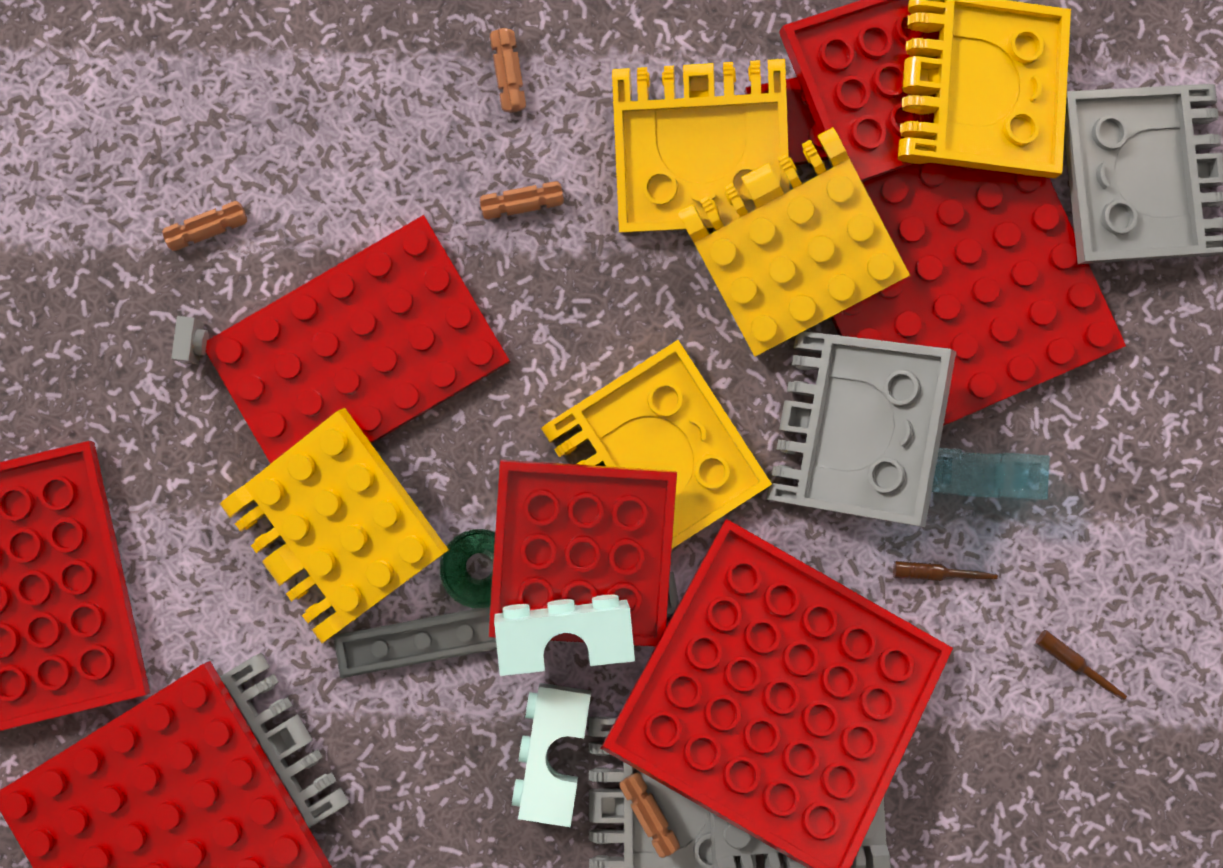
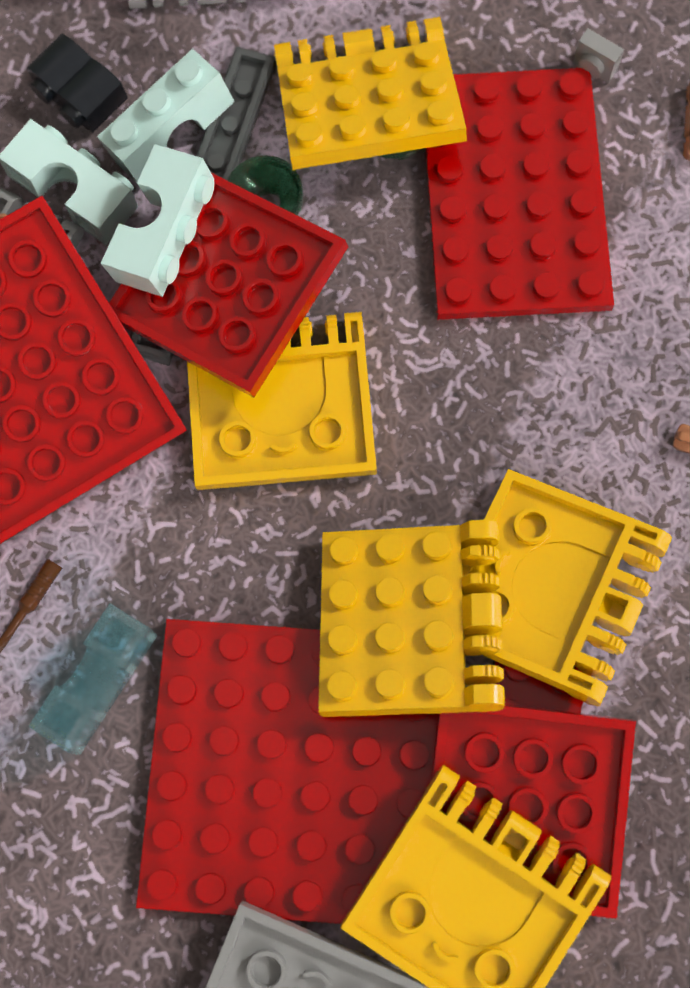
camera: 125 degrees right, 10 degrees down
(426, 690) = (183, 93): none -> light aqua arch
(454, 804) = (76, 83): none -> black brick
(521, 200) = (584, 400): nougat axle -> none
(868, 429) = (195, 595): light grey hinge -> none

